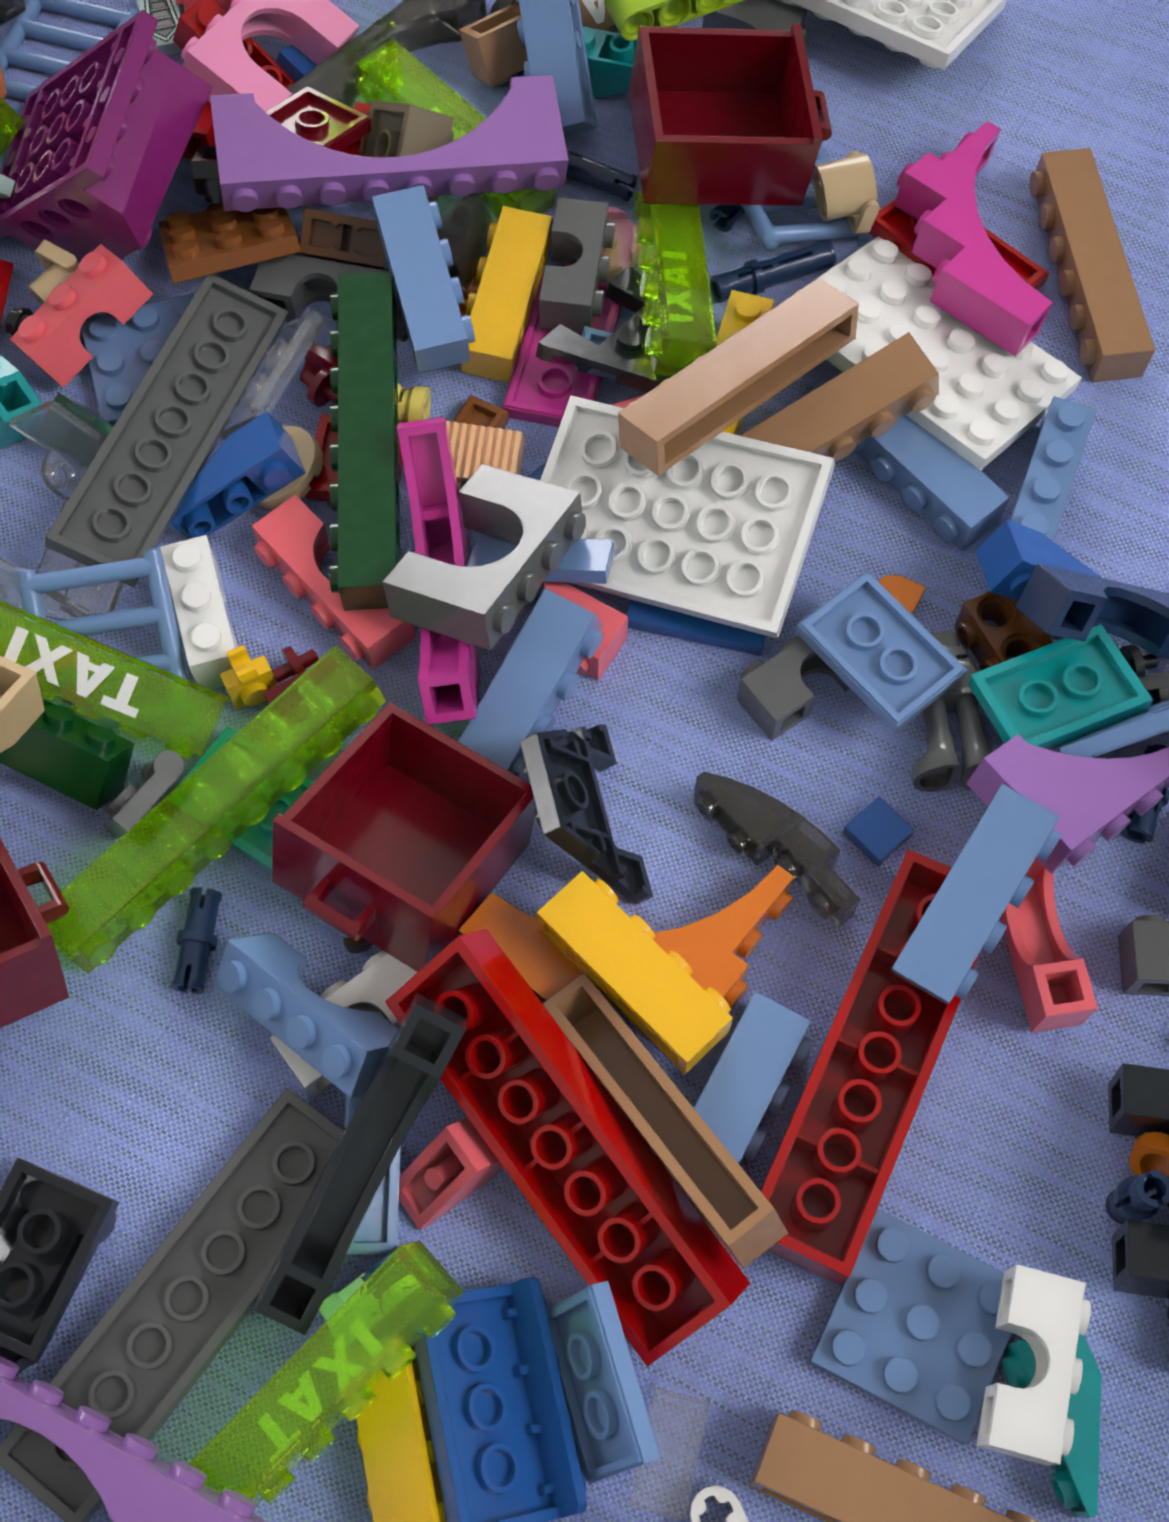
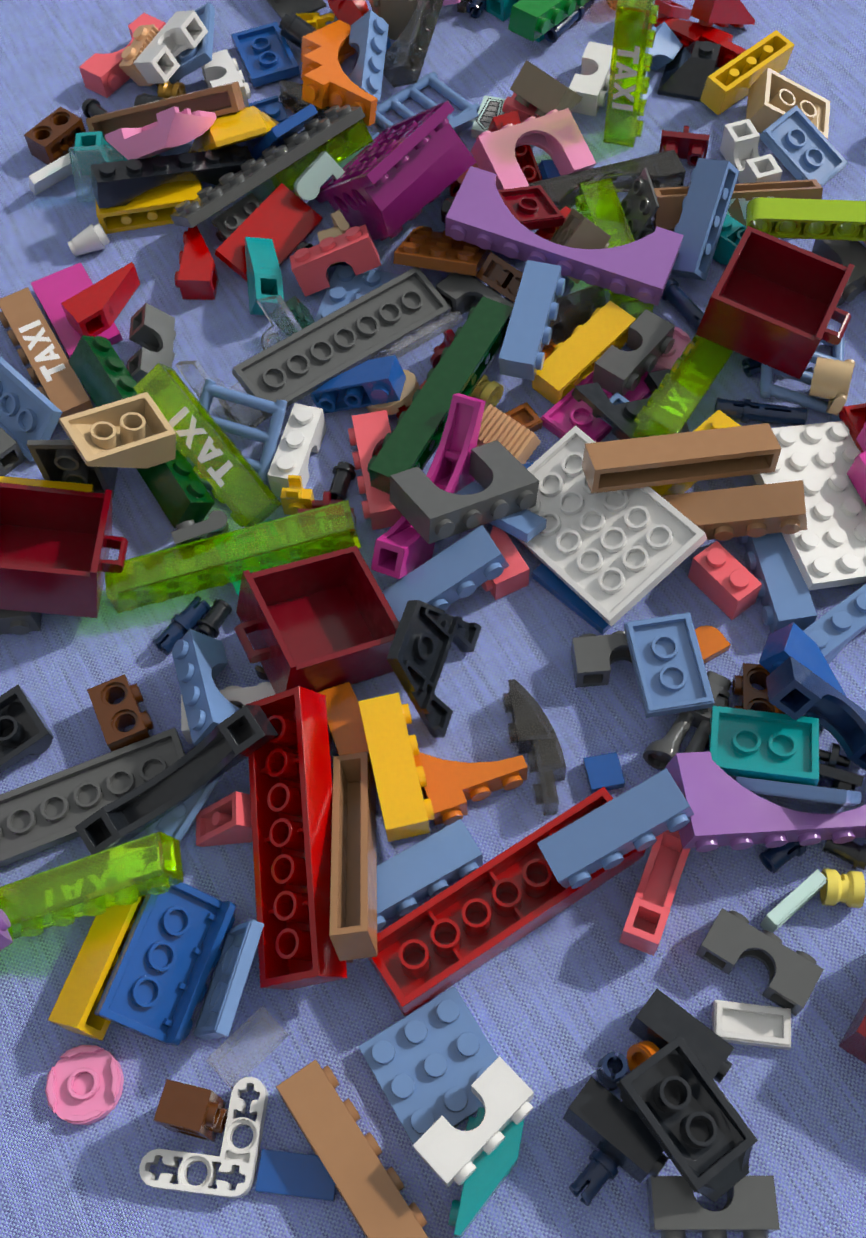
camera: 35 degrees right, 5 degrees down
(189, 1123) = (116, 717): none -> reddish brown brick
(237, 908) = (214, 618): none -> black pin
(290, 624) = (341, 481): none -> black pin
(458, 58) = (640, 206): none -> dark grey hinge
(870, 508) = (724, 580): none -> coral brick

